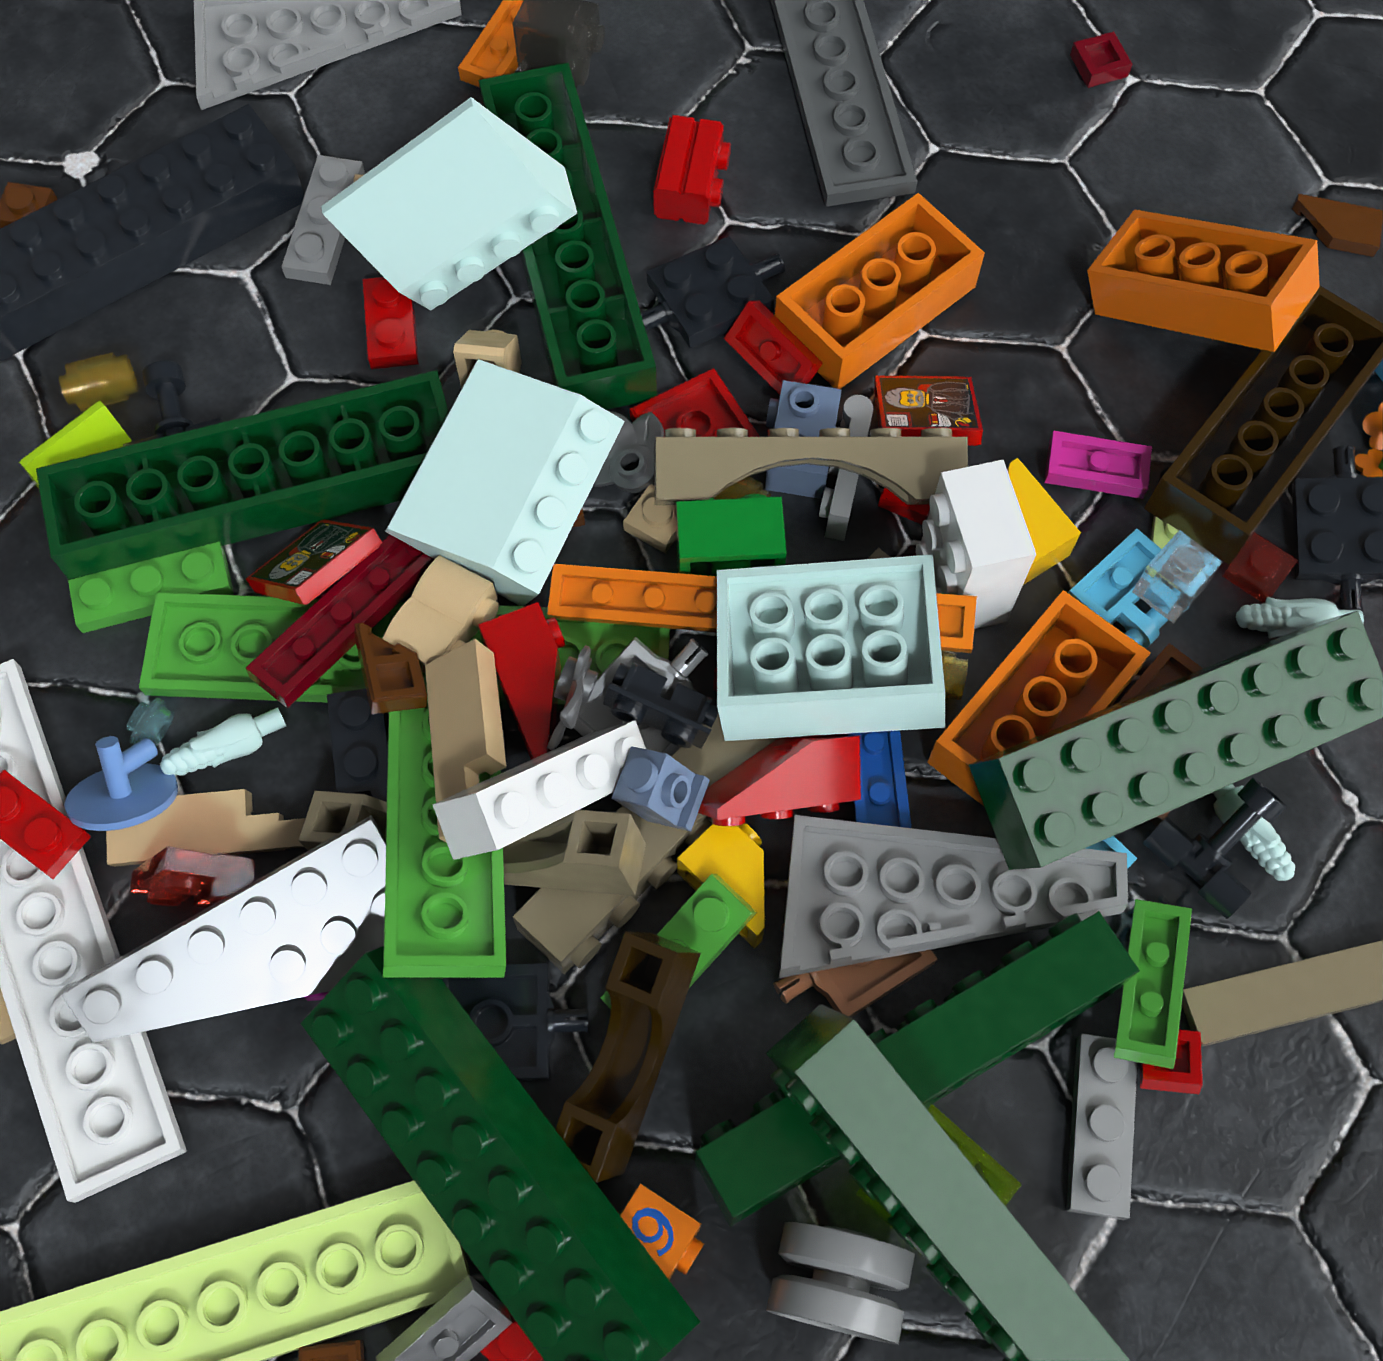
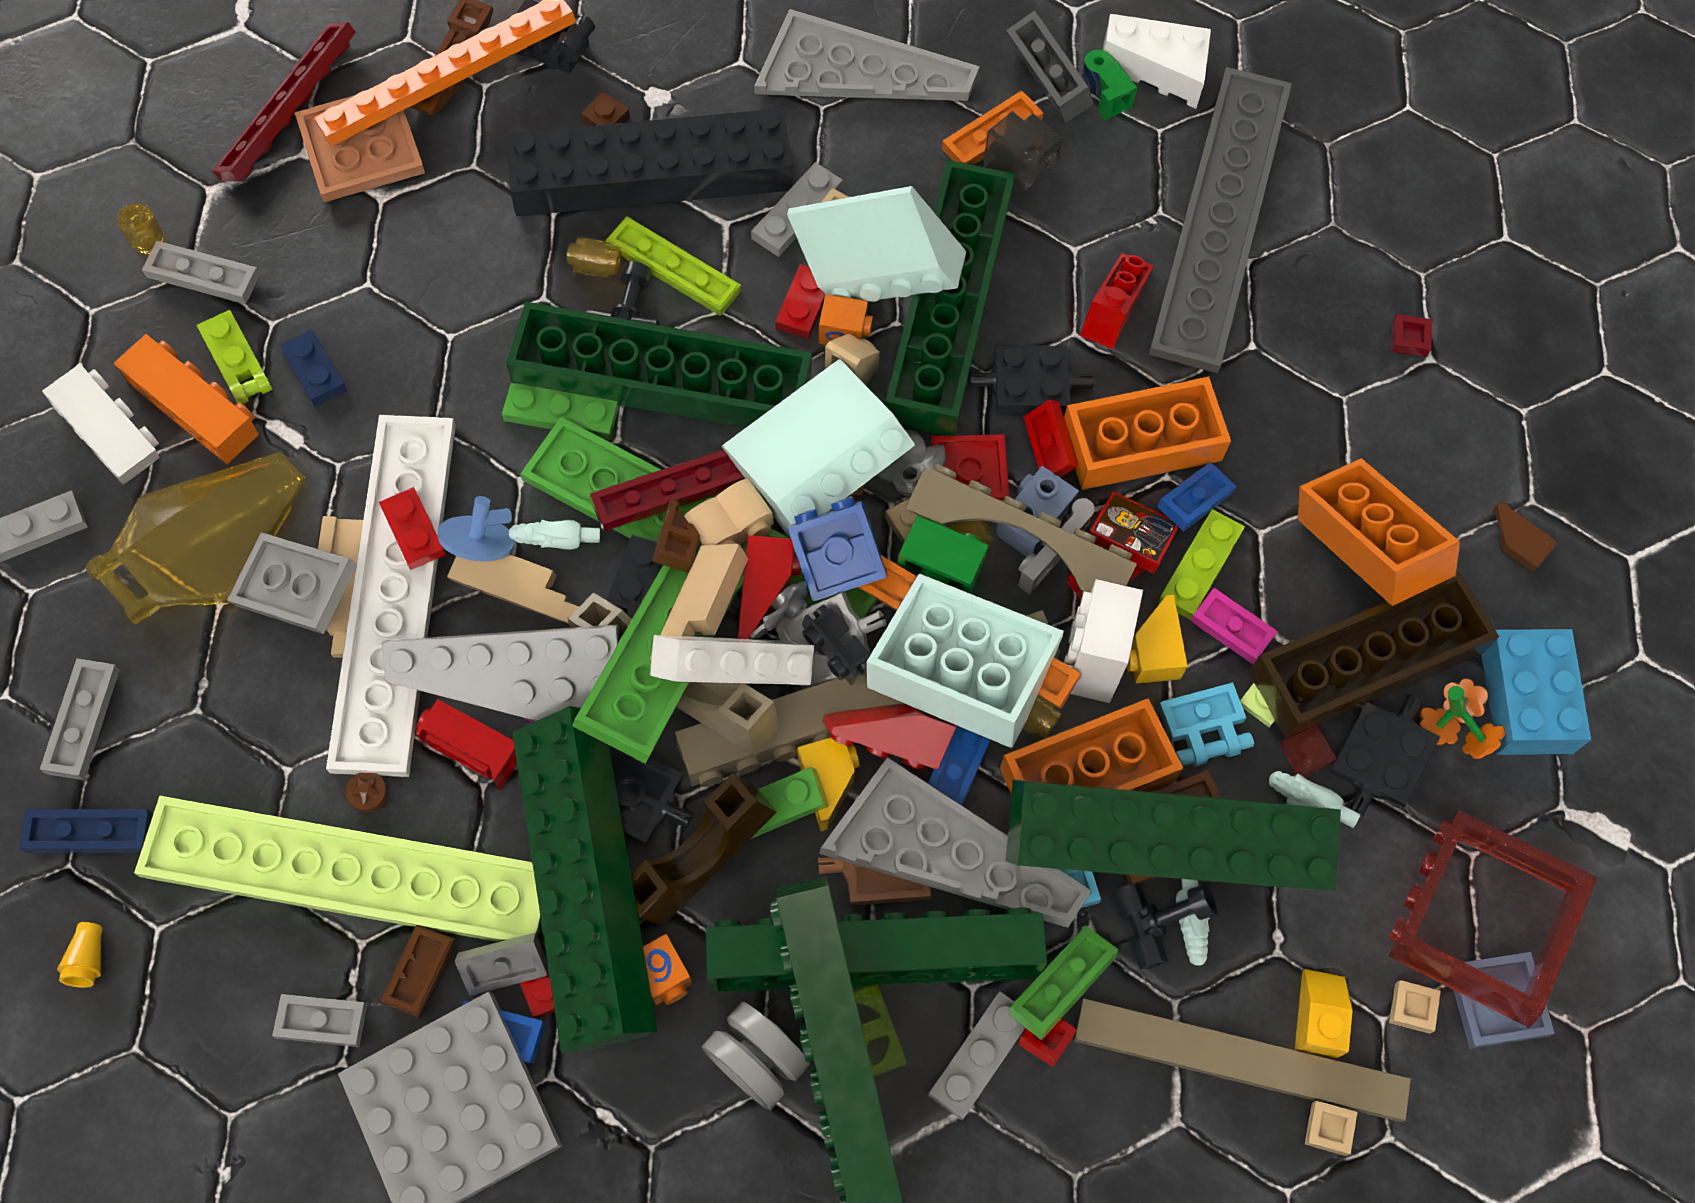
camera: 25 degrees right, 0 degrees up
(85, 435) = (566, 293): lime slope -> none
(139, 1202) = (366, 792): none -> reddish brown tile
(150, 721) = (516, 499): clear light blue plate -> none
(182, 873) = (485, 604): clear red plate -> none
(208, 348) = (675, 266): none -> lime tile
(244, 1065) = (468, 742): none -> red window
(314, 561) = (669, 443): tile -> none
(448, 316) = (844, 317): none -> orange brick
(599, 587) = (836, 548): none -> plate
(660, 789) = (805, 697): sand blue brick -> none
(689, 170) = (1064, 285): red brick -> none
(758, 161) = (1116, 300): none -> red slope
(972, 338) = (1196, 496): none -> blue plate
(1020, 407) = (1202, 562): none -> lime plate
(1176, 576) = (1234, 727): clear brick -> none

